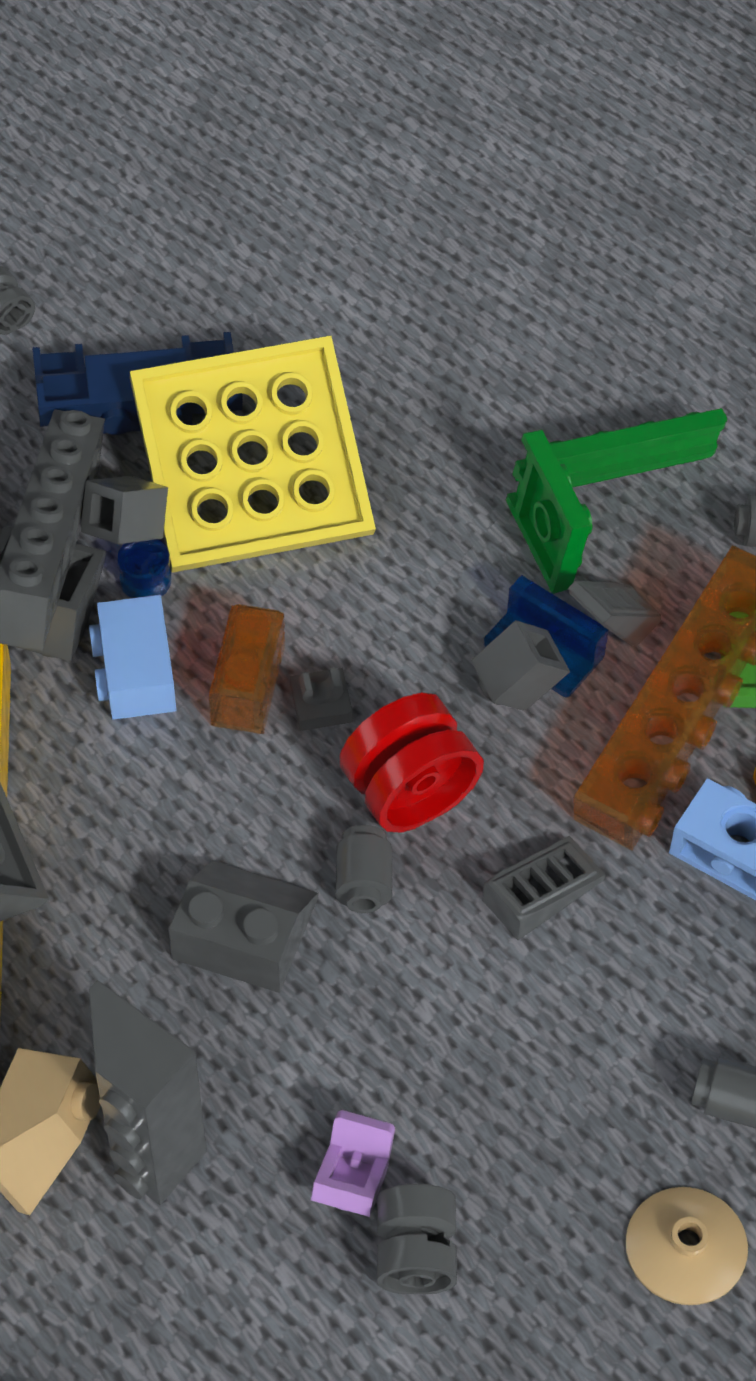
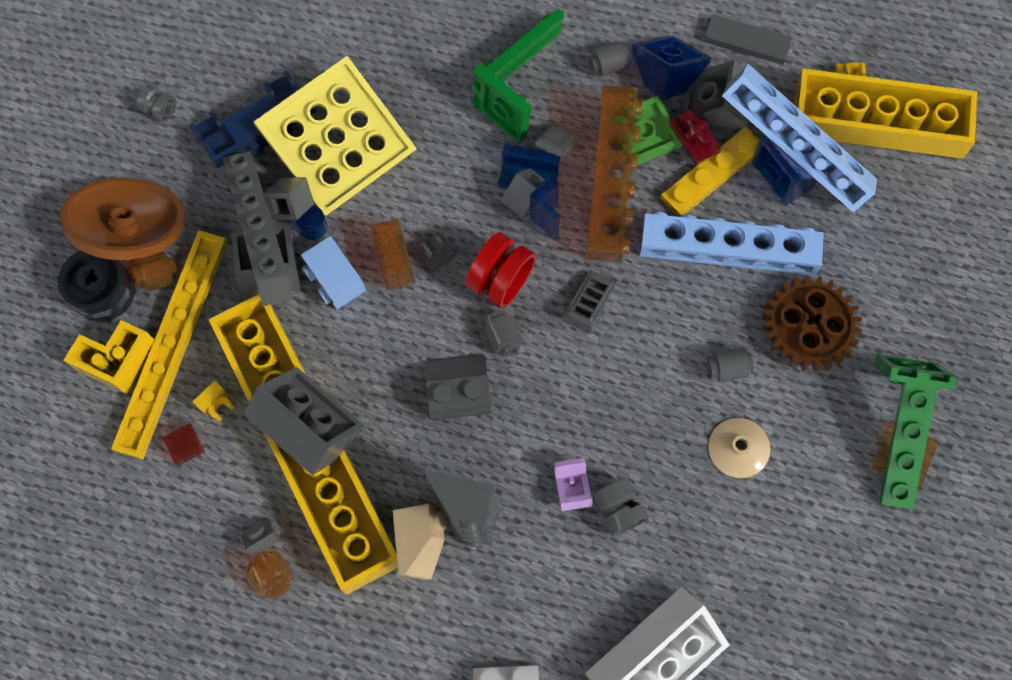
camera: 20 degrees left, 15 degrees up
(541, 695) = (543, 205): none -> clear blue panel

